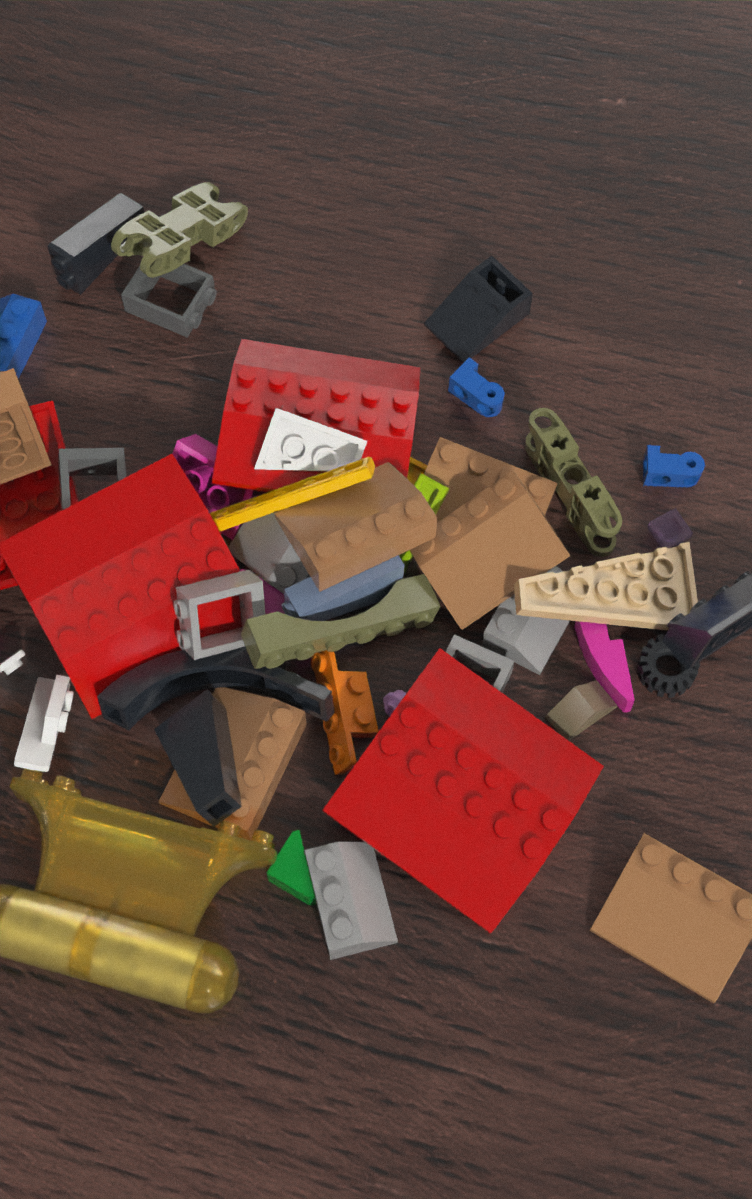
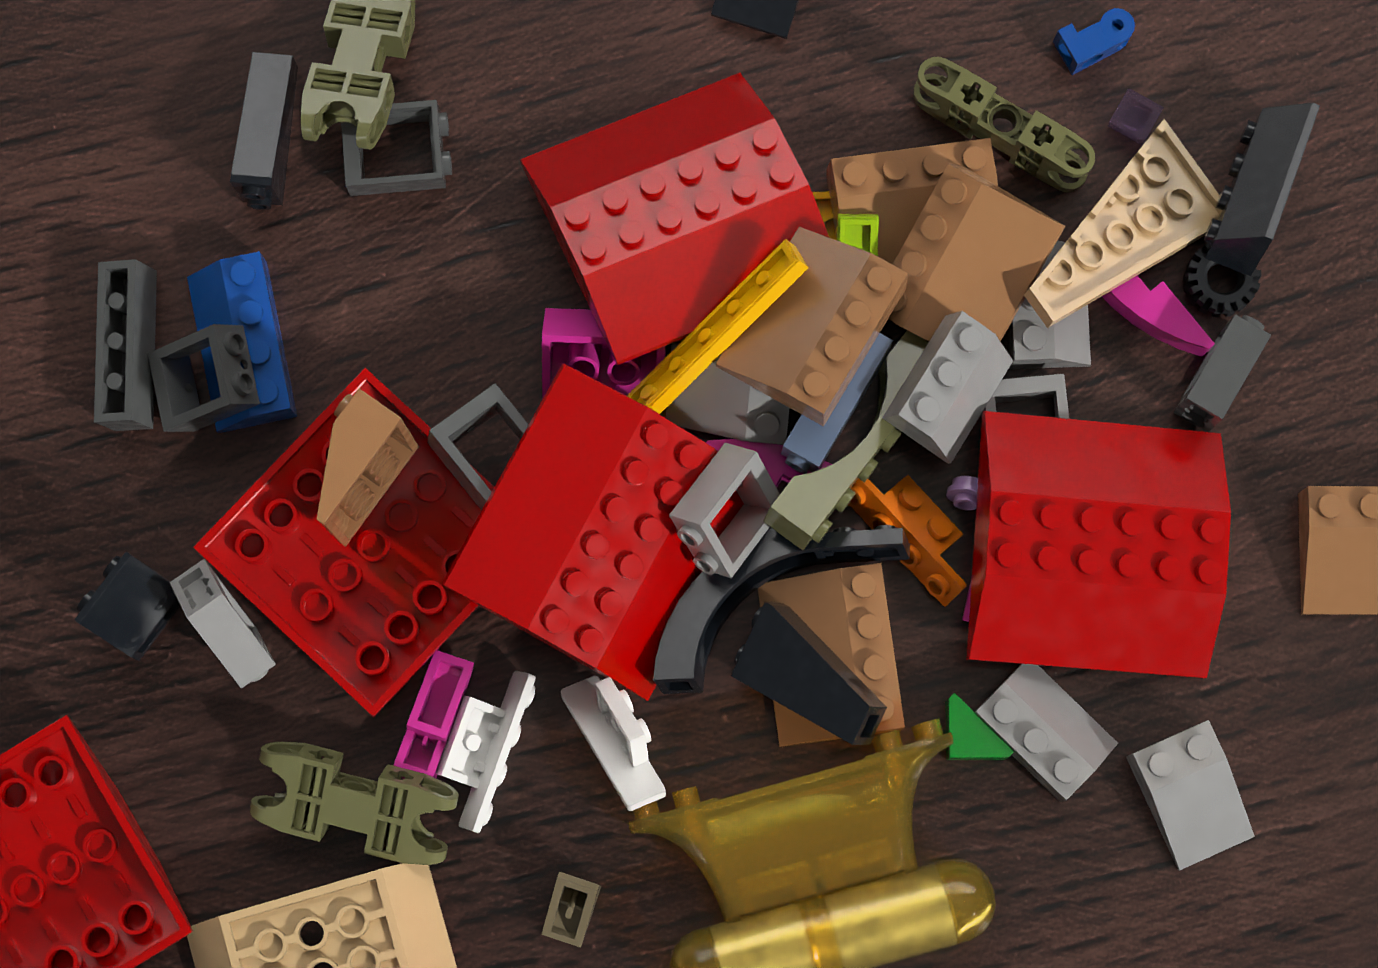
camera: 30 degrees left, 15 degrees up
(306, 445) = (700, 263): white wing -> none
(426, 619) = (949, 385): none -> light grey slope
(427, 1009) = (1192, 794): none -> light grey slope
(475, 390) = (824, 68): blue leg -> none
(580, 709) = (1158, 383): dark tan slope -> none
(628, 722) = (1223, 372): none -> dark grey window

